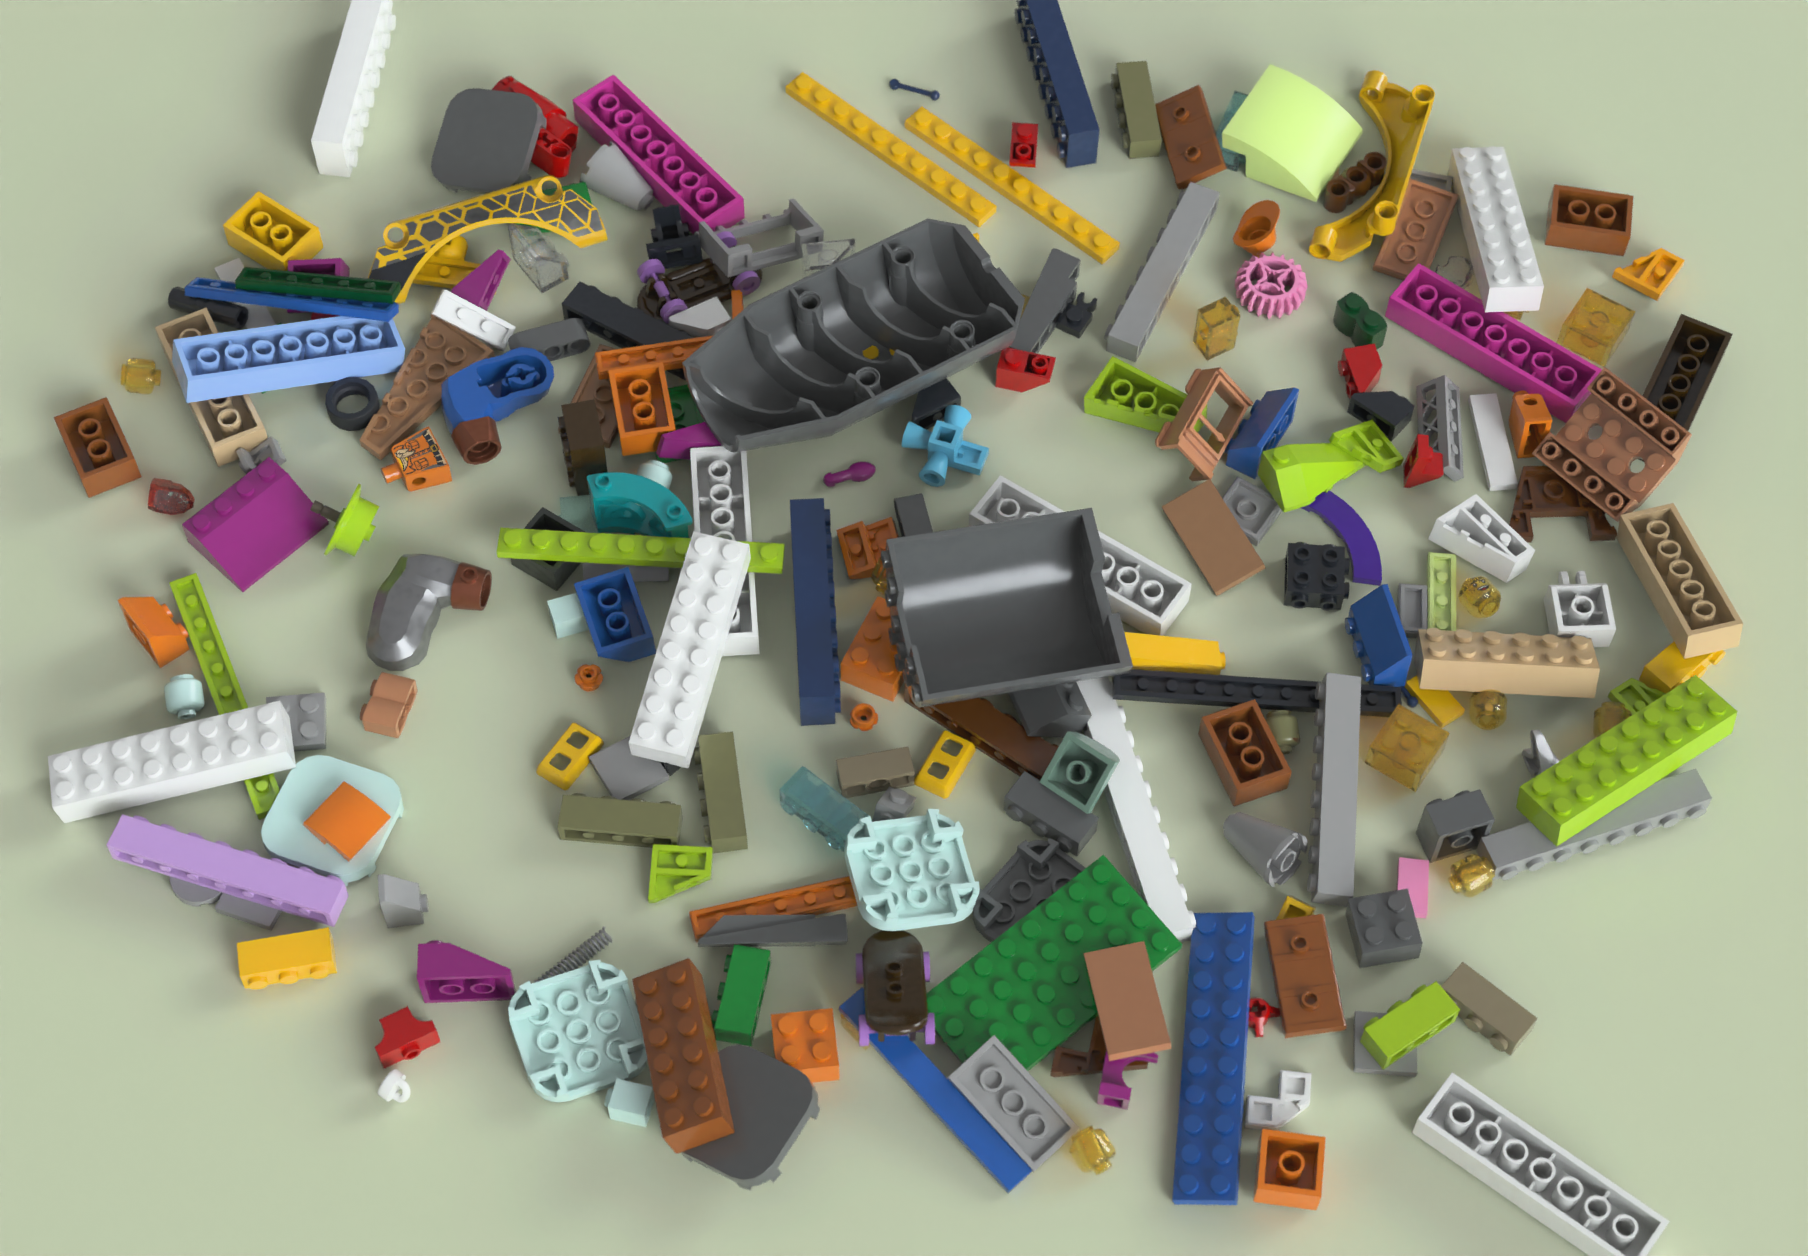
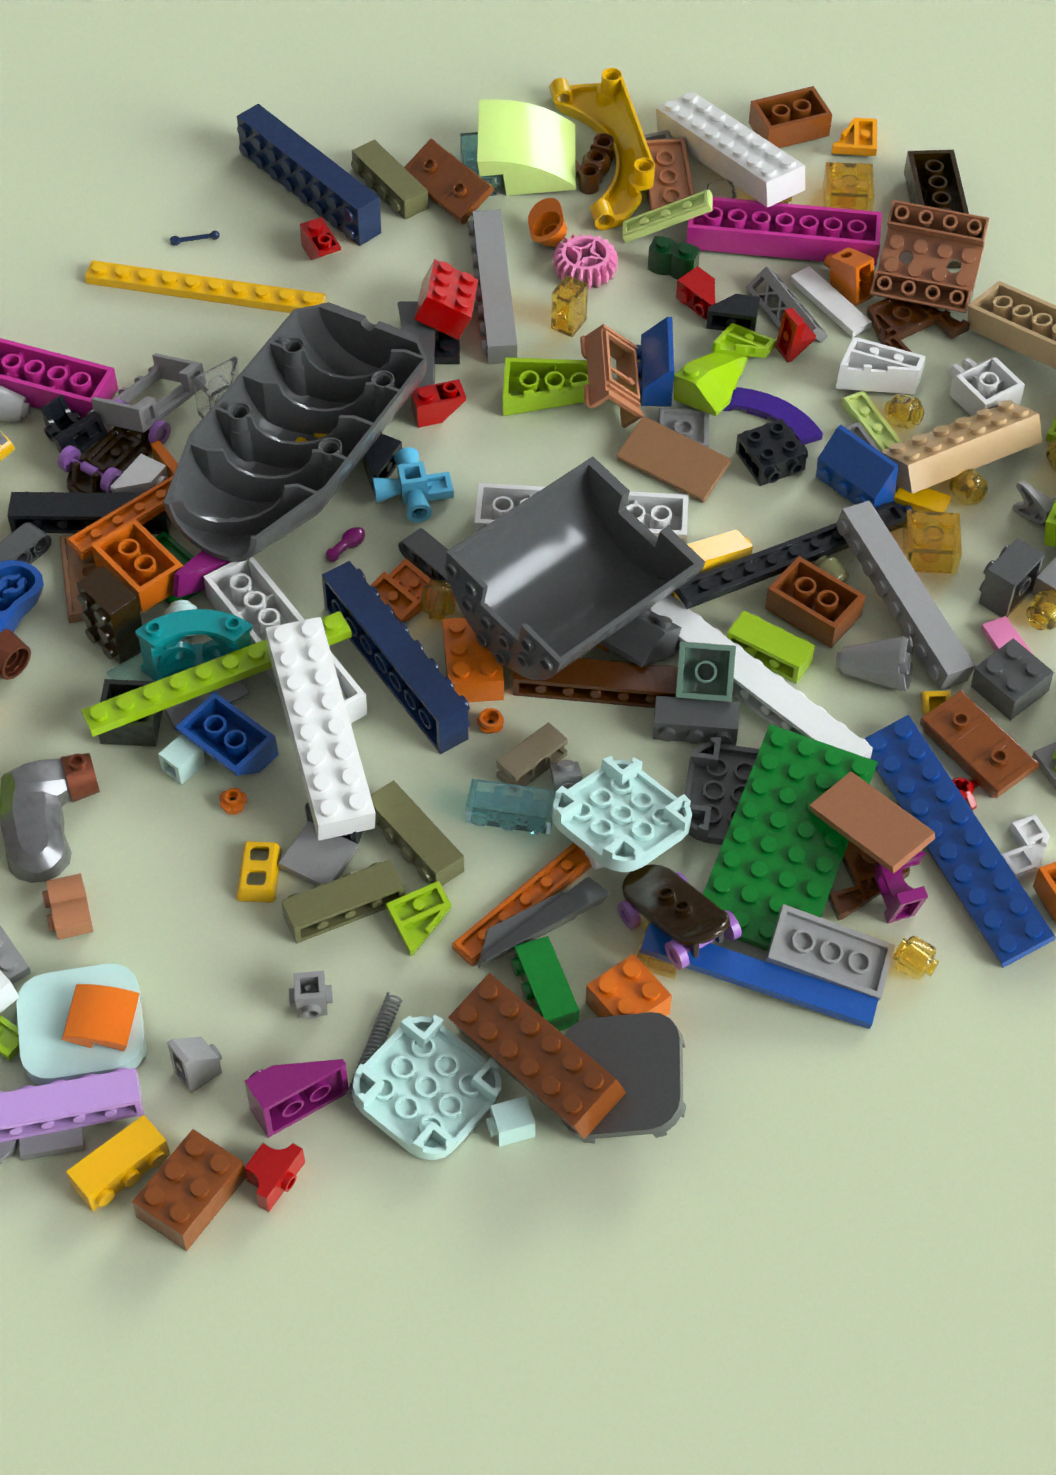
camera: 30 degrees left, 5 degrees down
(327, 1013) = (189, 1189): none -> dark orange brick
(392, 1084) = (289, 1219): white tile -> none
(534, 894) = (310, 994): none -> light grey brick
(956, 765) = (581, 745): yellow piece -> none
(1012, 185) = (314, 273): yellow plate -> none
(1098, 267) = (446, 299): none -> red brick
(1173, 775) = (773, 646): none -> lime brick
(1380, 274) = (667, 216): none -> yellowish green tile

